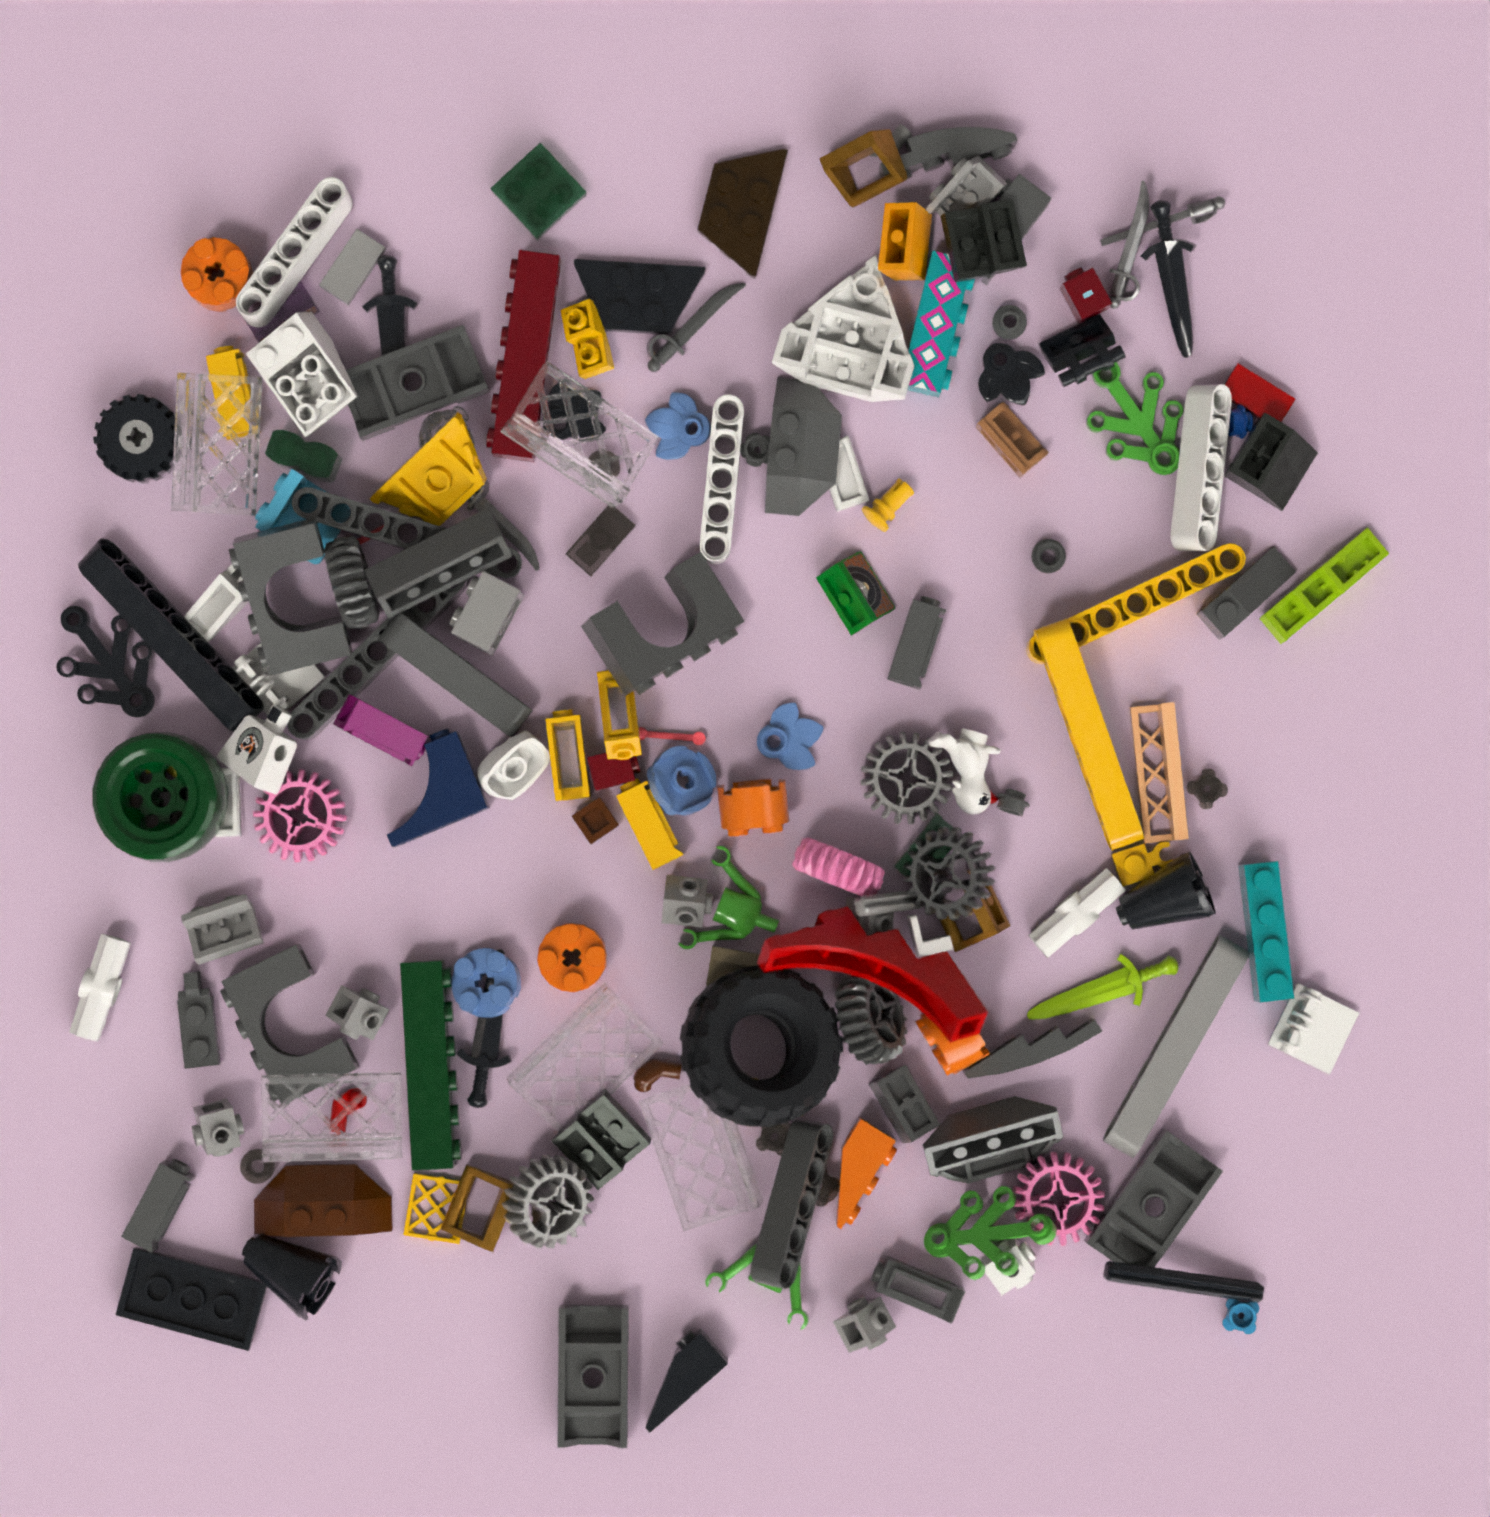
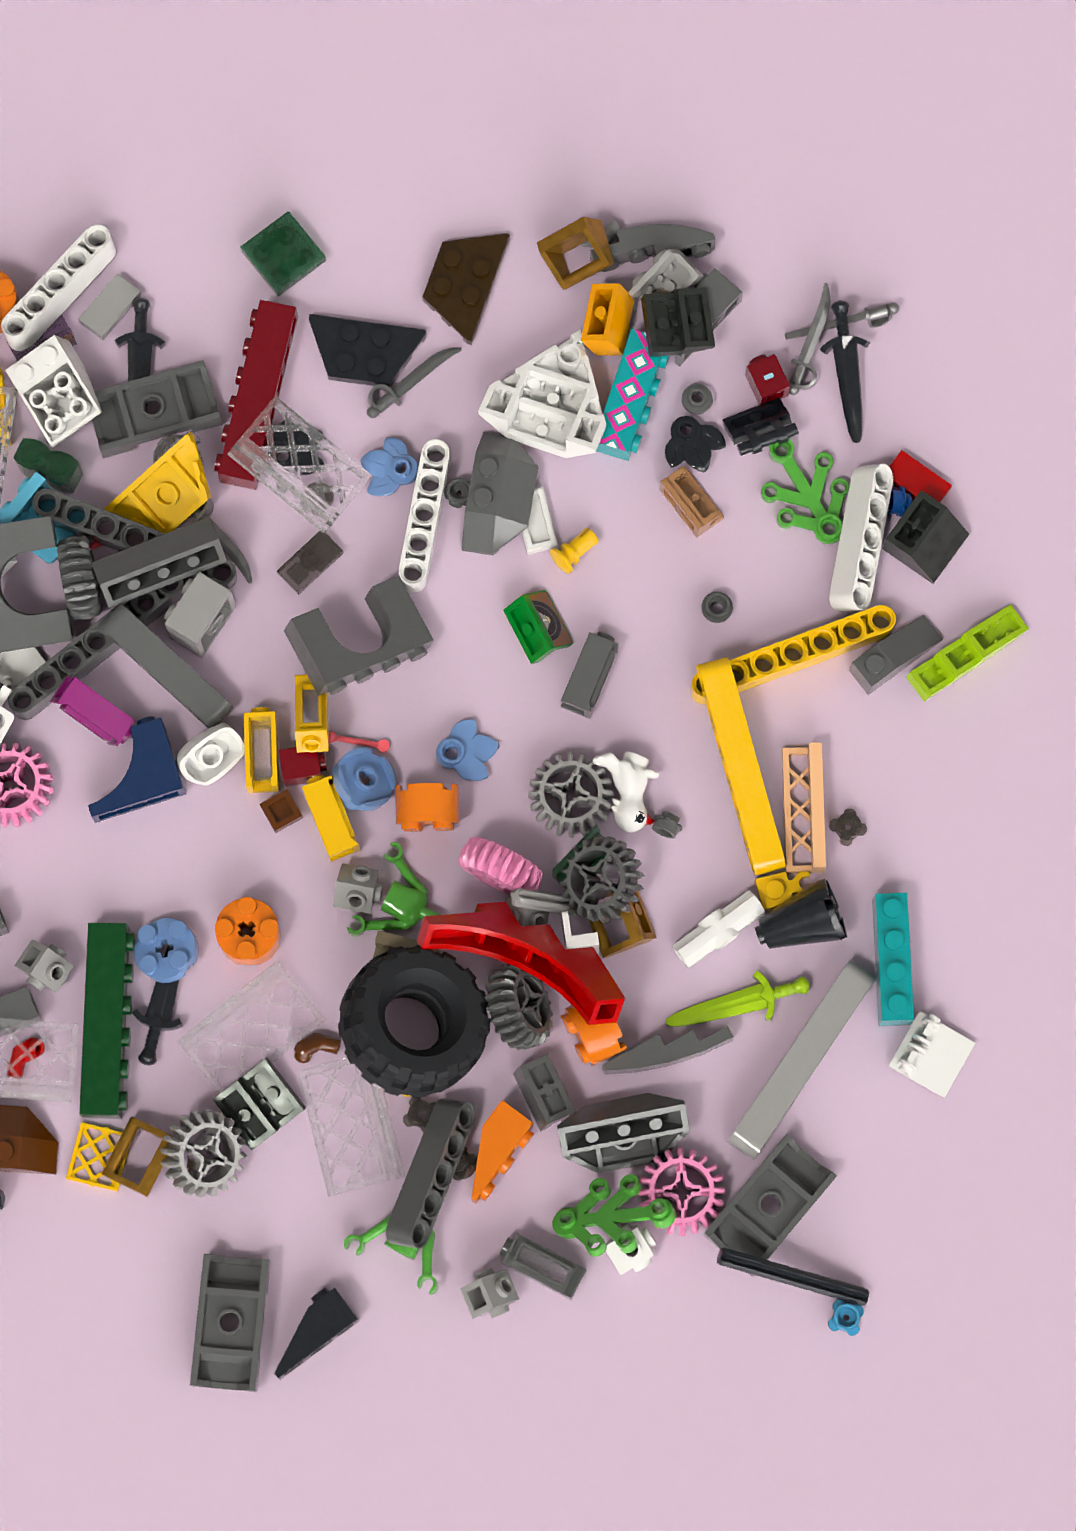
camera: 10 degrees right, 10 degrees down
(587, 334) = (315, 381): yellow slope -> none

